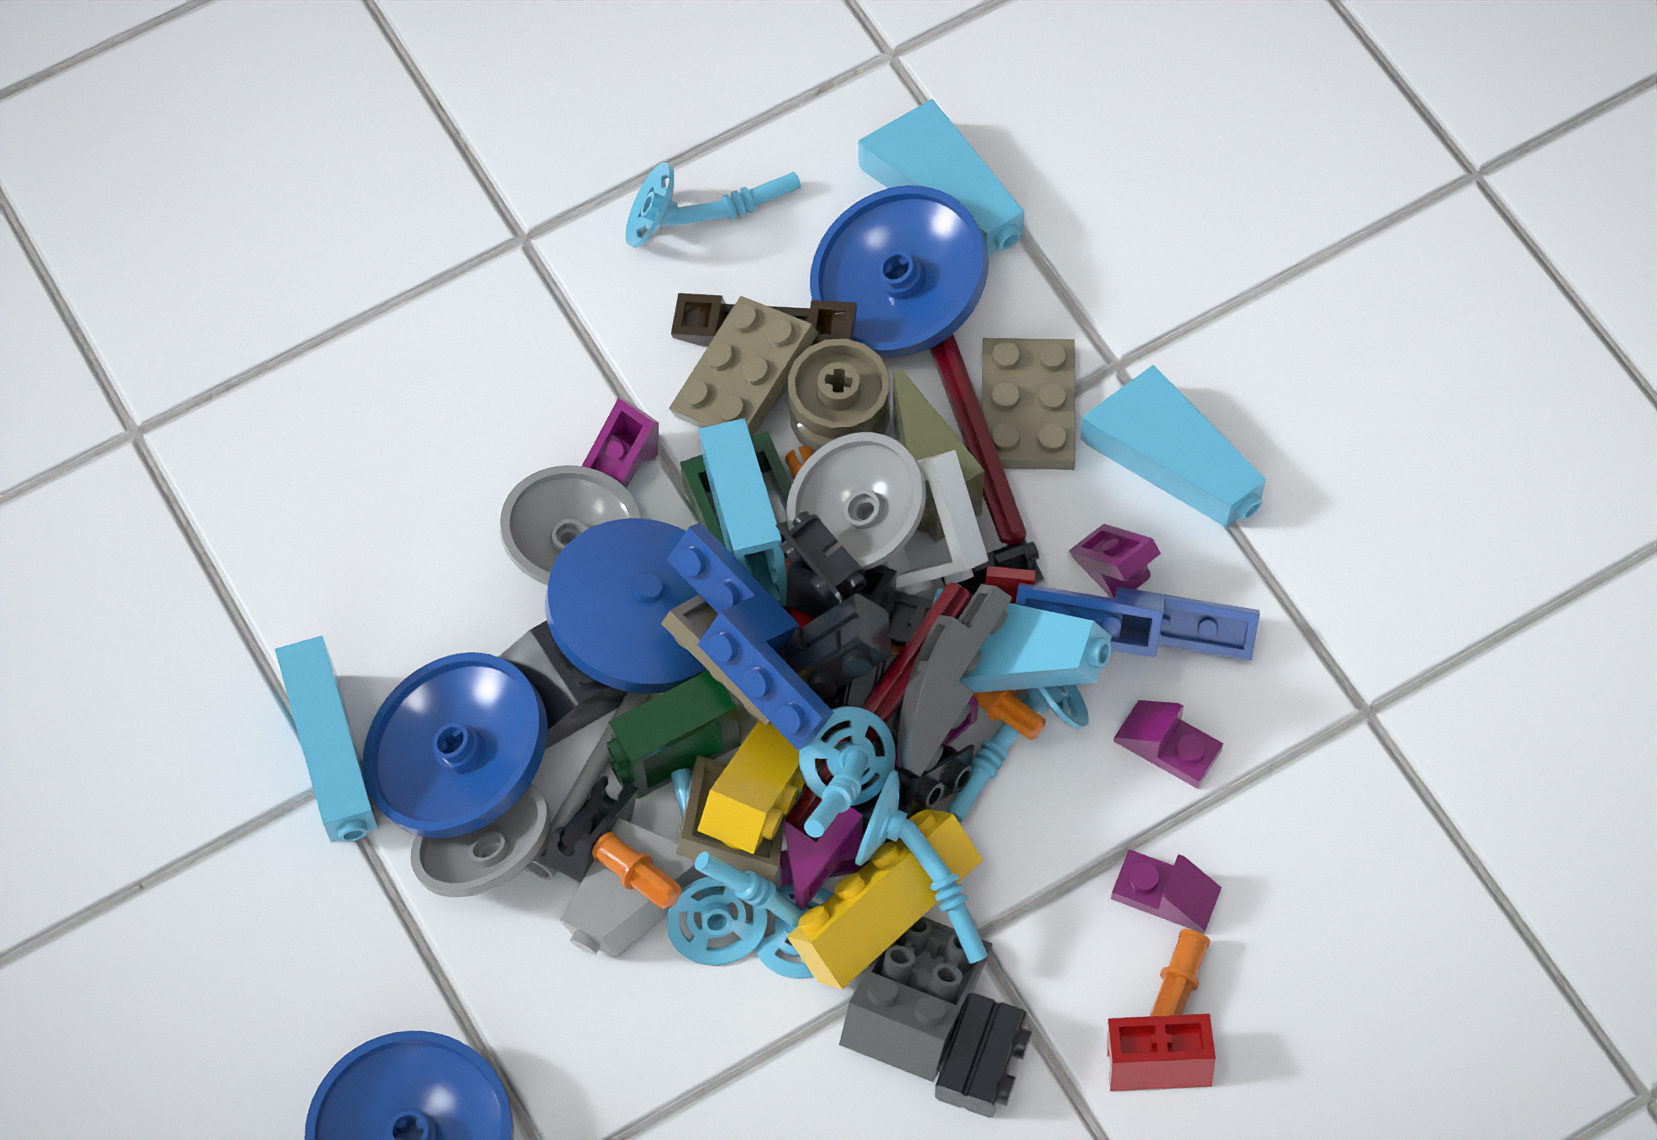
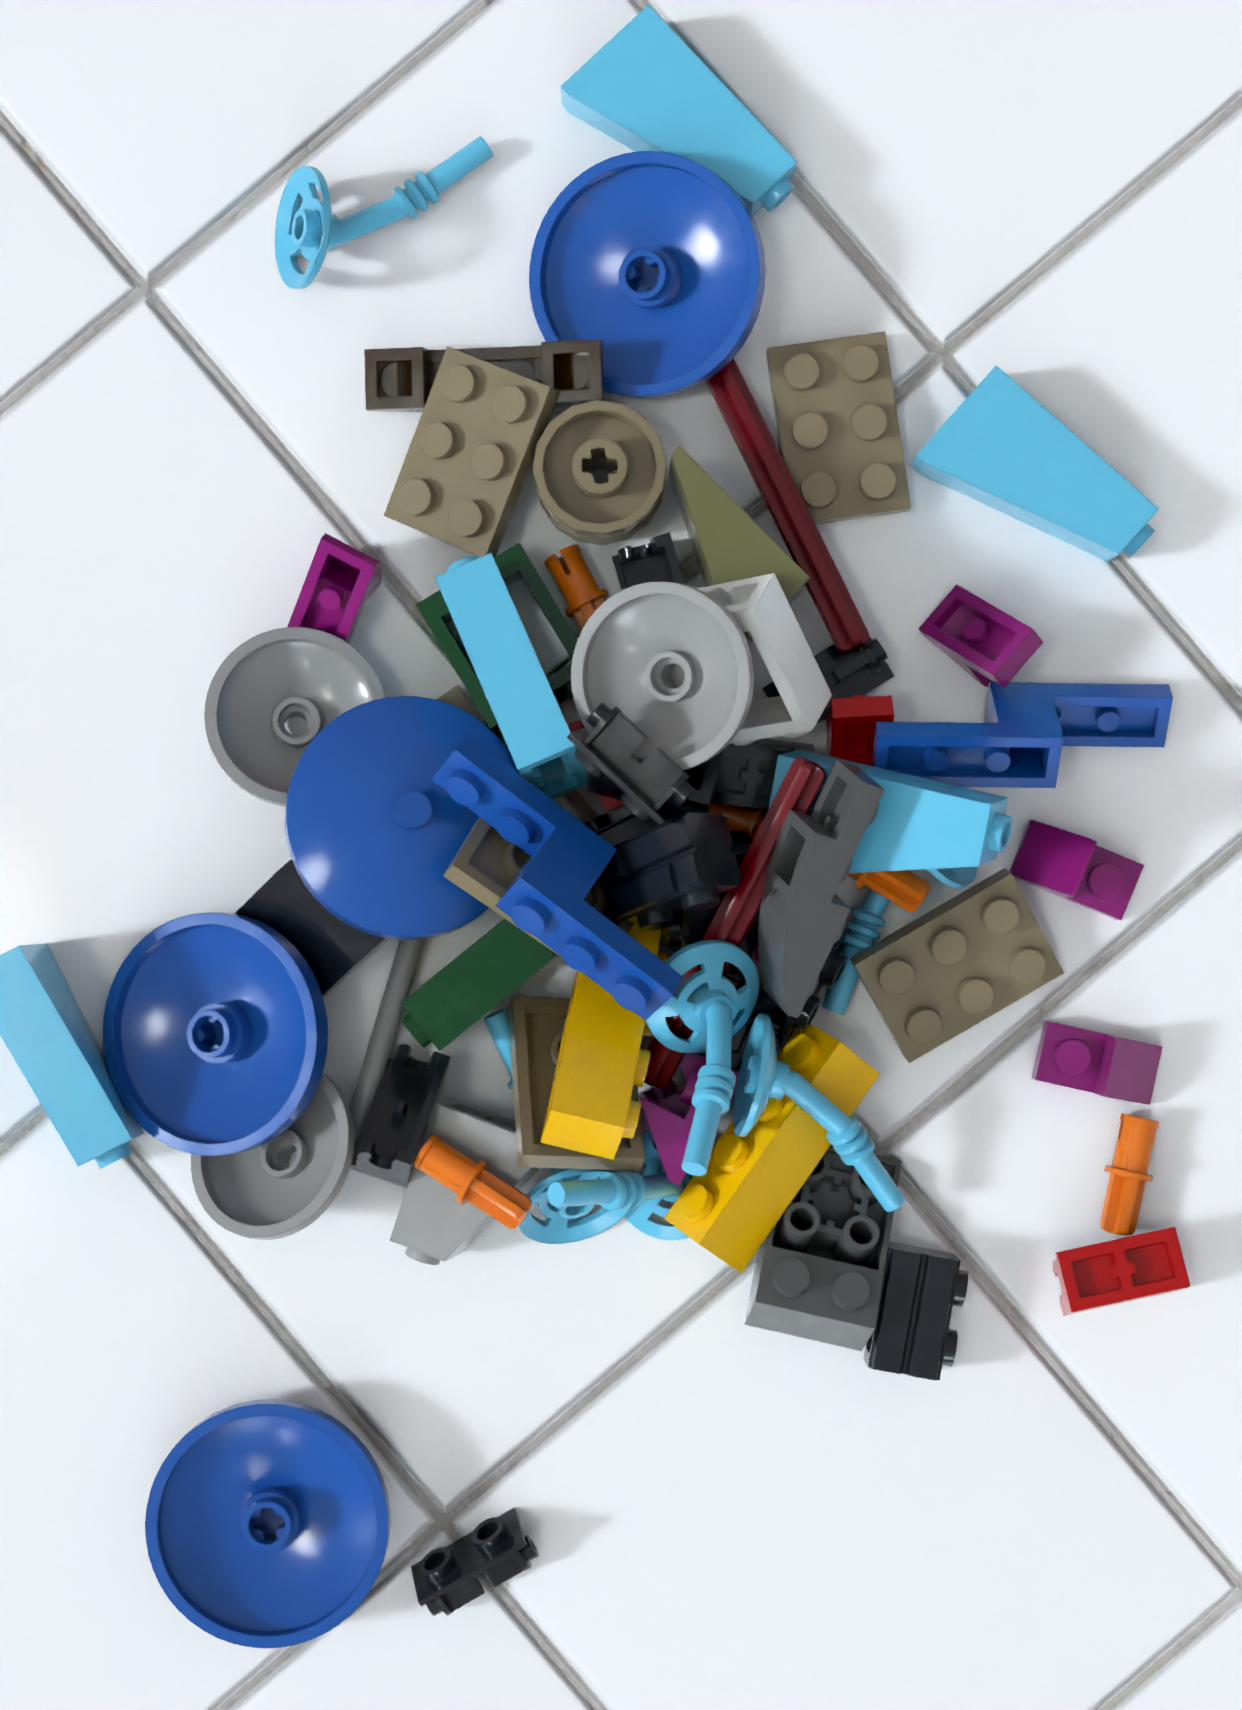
camera: 10 degrees left, 25 degrees up
(1059, 793) = (957, 965): none -> dark tan plate

